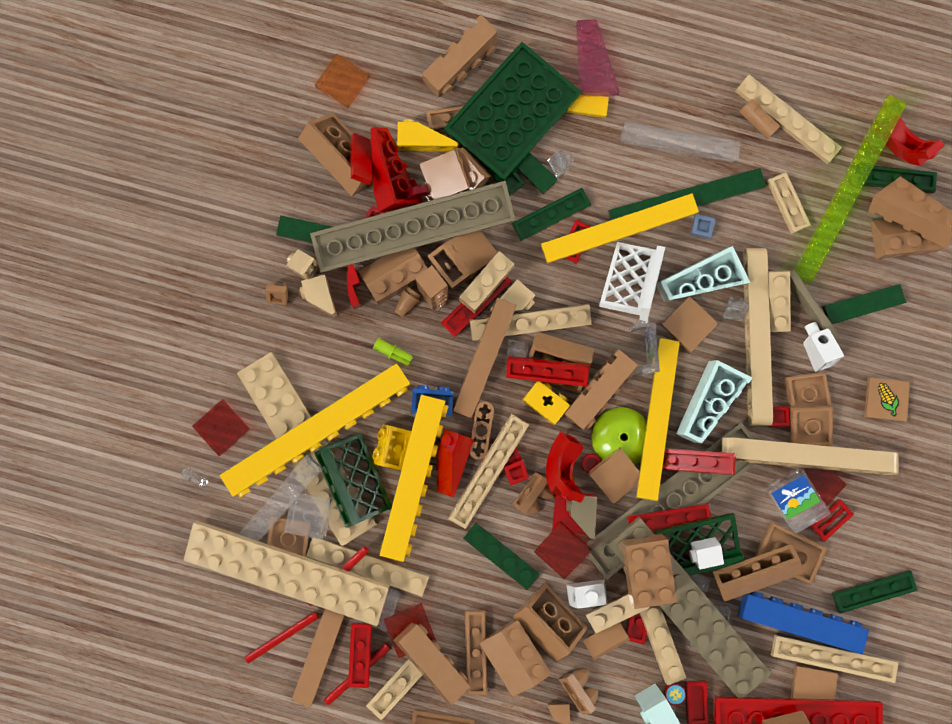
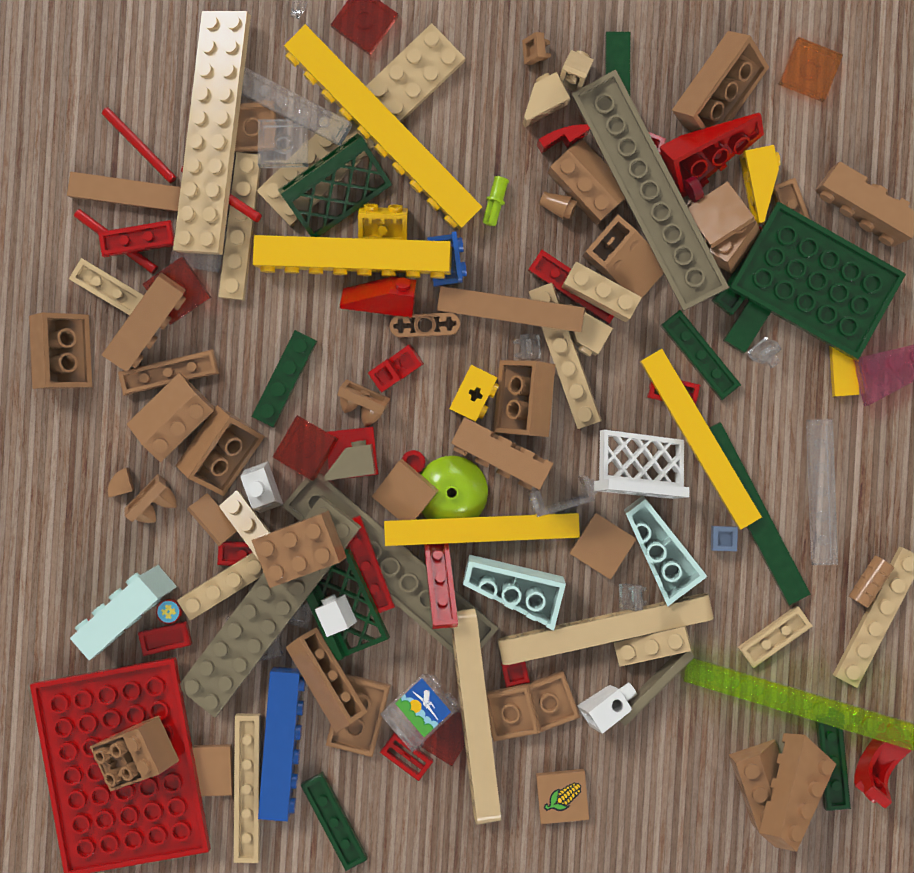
camera: 85 degrees right, 5 degrees up
(361, 159) = (718, 109): red tile -> none
(433, 288) = (579, 226): medium nougat brick -> none
(488, 471) = (379, 342): tan tile -> none
(547, 371) = (510, 386): red plate -> none
(560, 467) = (401, 425): red arch -> none
(864, 304) = (670, 749): dark green tile -> none

